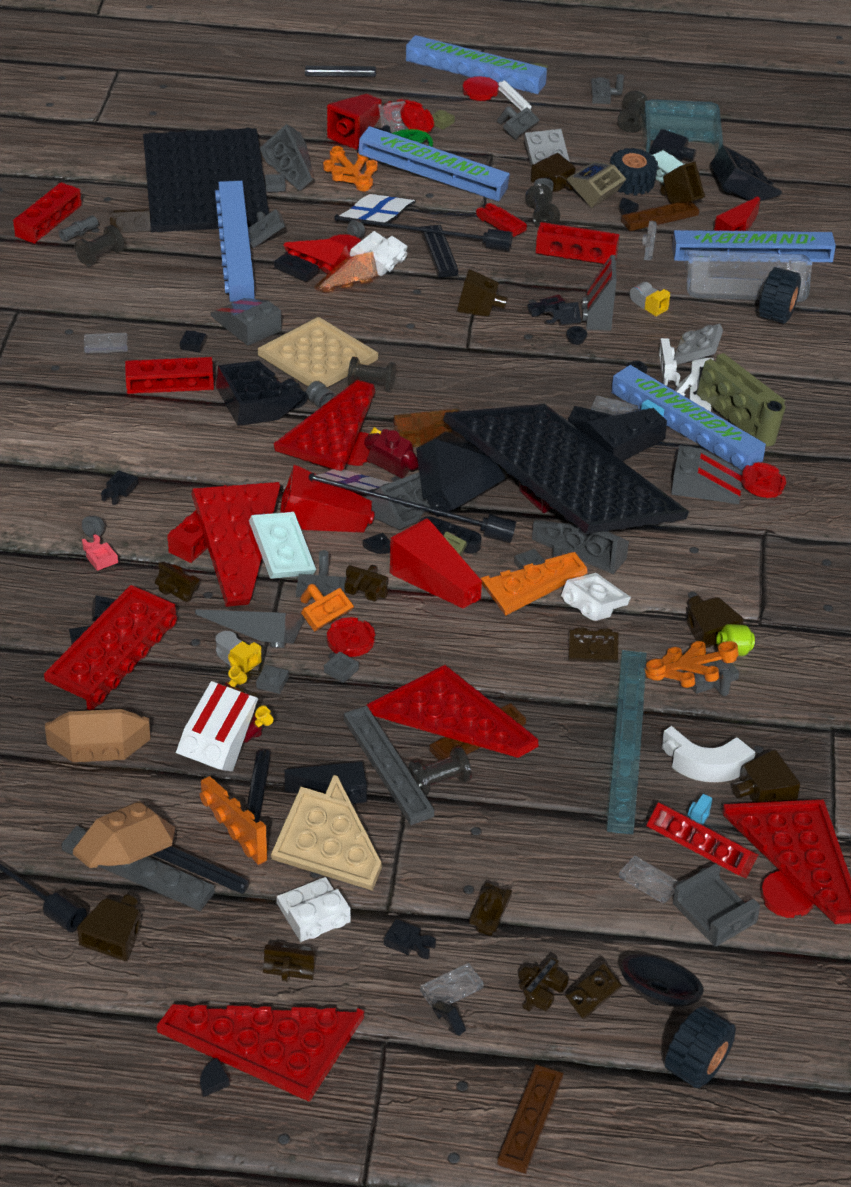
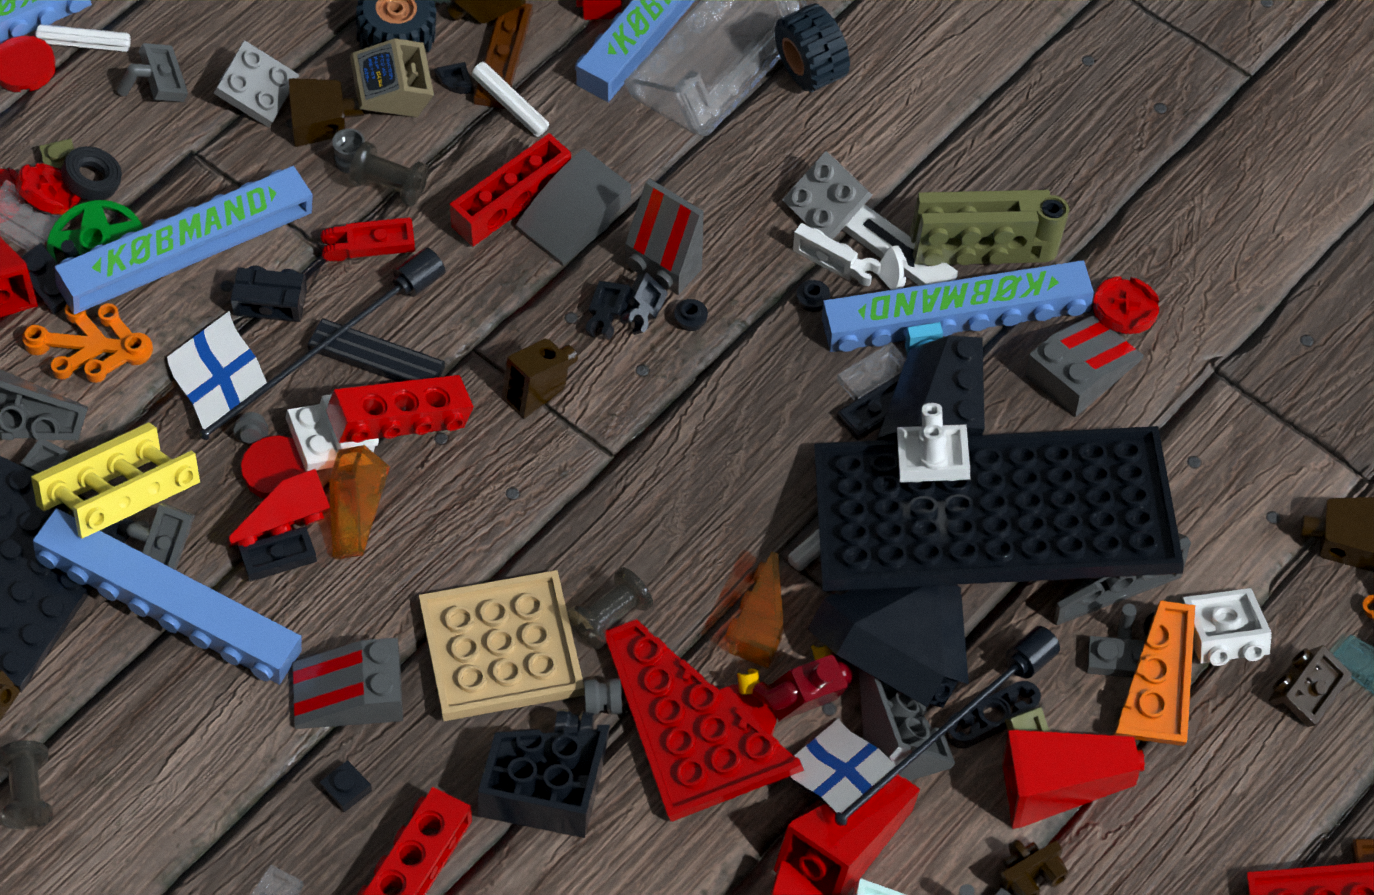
camera: 55 degrees left, 15 degrees up
(278, 194) = (105, 462): none -> light yellow fence
(377, 544) = (954, 808): black tile -> none
(409, 258) = (399, 408): none -> red brick
(434, 203) = (269, 294): none -> black brick
(436, 134) = (85, 187): none -> black tyre
(576, 431) = (933, 449): none -> white plate
(582, 268) = (574, 207): none -> dark grey slope
(631, 226) = (510, 99): none -> white axle
(649, 240) = (560, 103): clear plate -> none
(650, 298) = (688, 182): leg -> none

